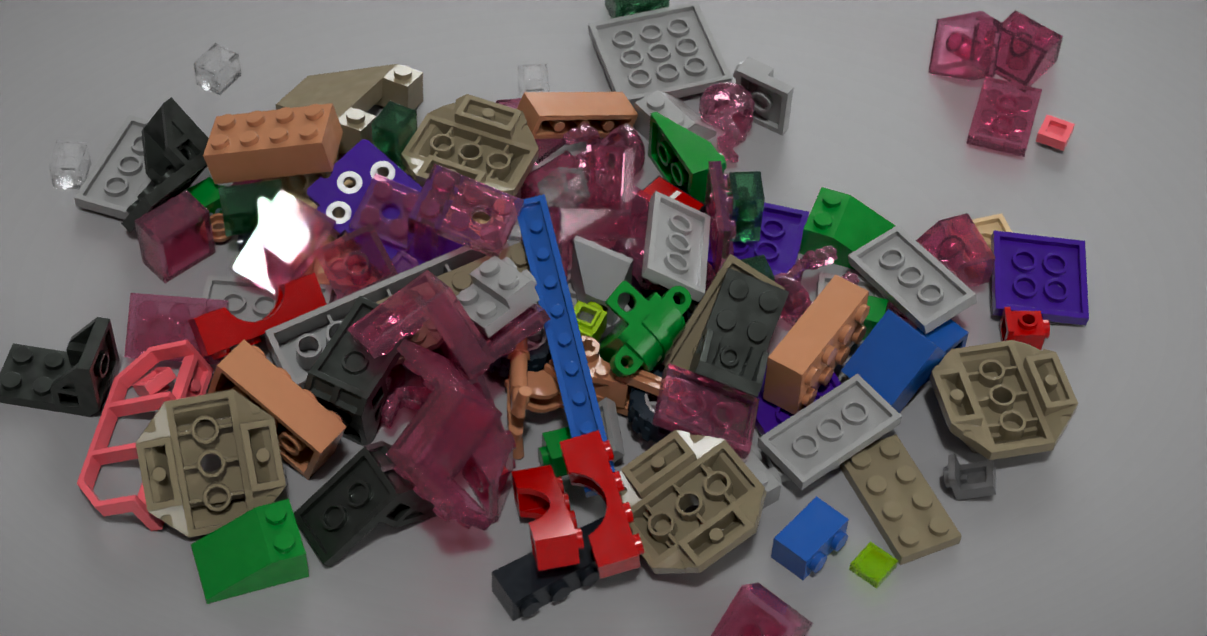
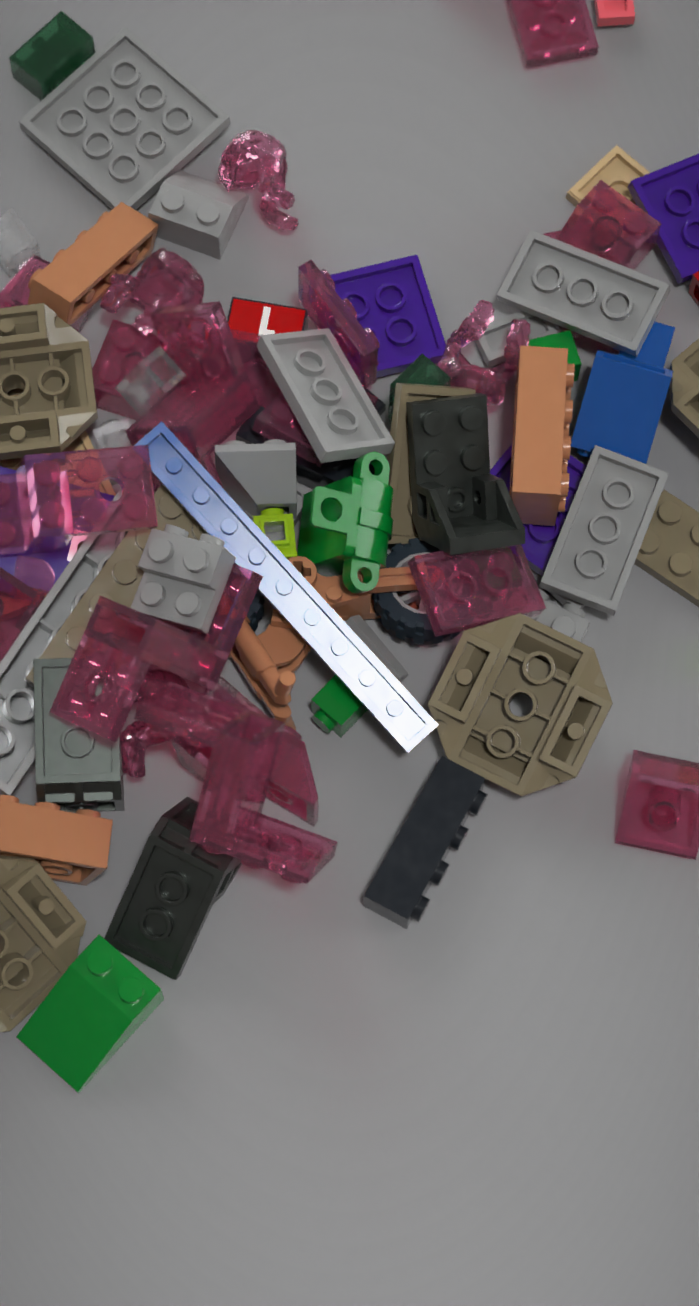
camera: 30 degrees left, 20 degrees up
(555, 530) = (414, 829): red arch -> none
(589, 466) = (477, 798): red arch -> none
(681, 155) = (248, 261): green slope -> none
(747, 204) = (364, 288): clear green brick -> none
(770, 95) = (295, 126): light grey plate -> none
(810, 538) = (652, 666): blue brick -> none
(842, 223) = (467, 256): green slope -> none

